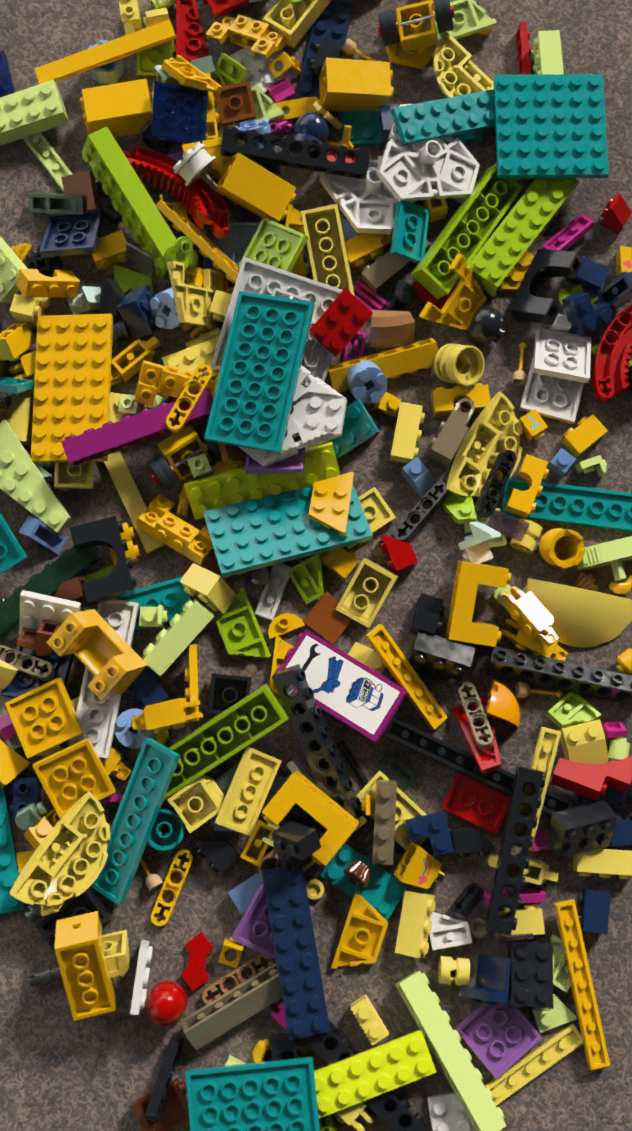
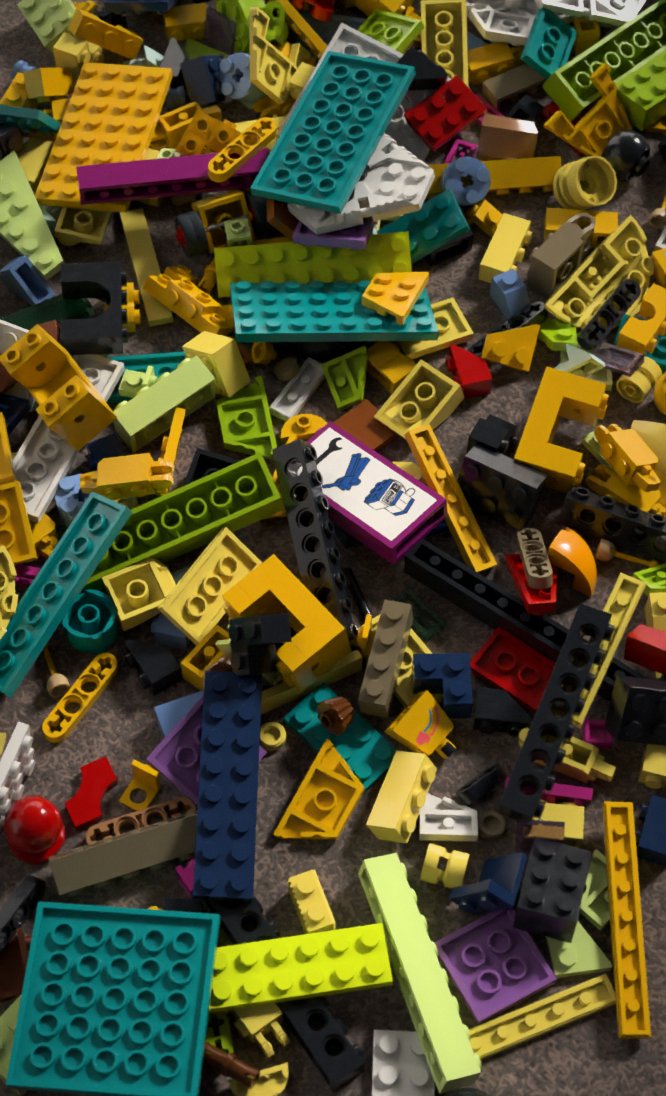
camera: 15 degrees right, 20 degrees down
(313, 291) = (427, 75): none -> black slope
(428, 527) = (512, 347): none -> yellow wing

